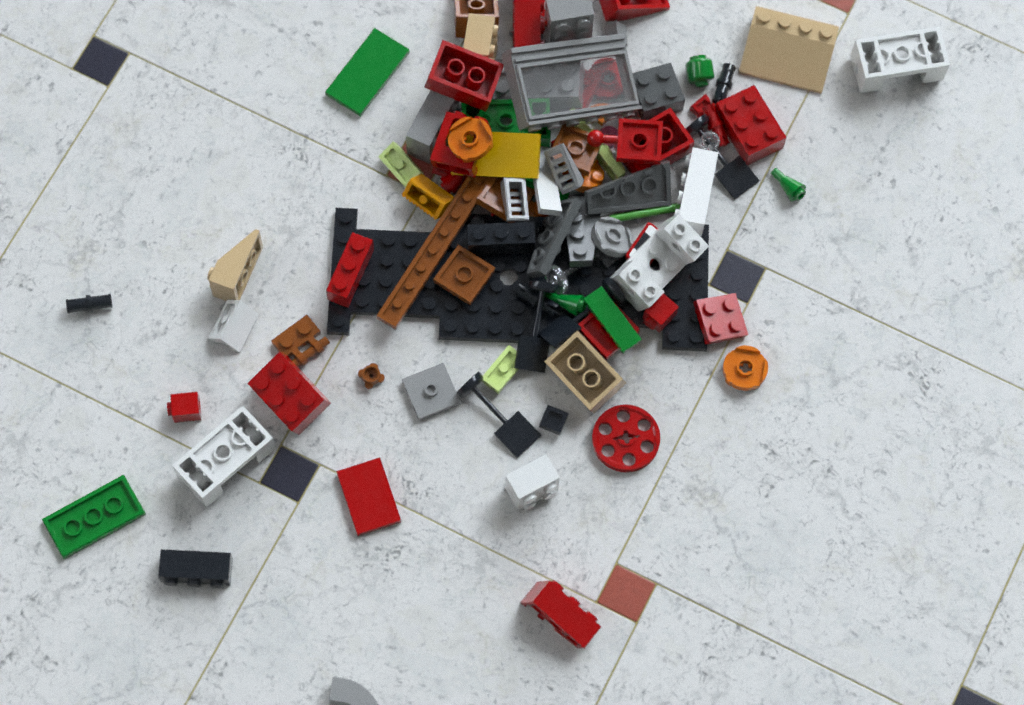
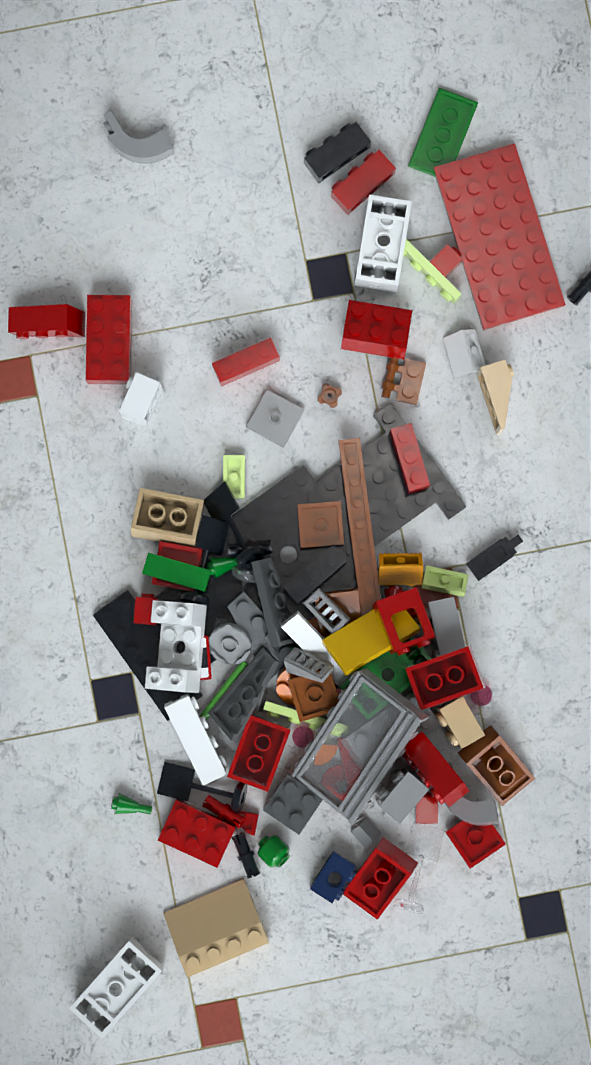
camera: 145 degrees right, 15 degrees up
(122, 397) = (499, 236): none -> red plate
(195, 526) = (362, 181): none -> red brick
(205, 401) = (433, 276): none -> yellowish green plate
(345, 155) = (493, 557): none -> black hinge
(367, 72) = (536, 642): green tile -> none
(368, 496) = (256, 303): red tile -> none
(418, 451) = (246, 362): none -> red brick
(470, 151) = (383, 628): orange plate -> none
(516, 432) = (186, 437): black piece -> none
(518, 557) = (108, 339): none -> red brick
(553, 420) = (165, 466): black plate -> none
(627, 150) = (283, 739): red plate -> none
(631, 429) = (99, 484): red wedge -> none
(660, 29) = (324, 887): none -> dark blue brick
(709, 134) = (213, 784): clear bush -> none
(720, 318) = (99, 646): plate -> none
(755, 361) = (40, 618): orange plate -> none

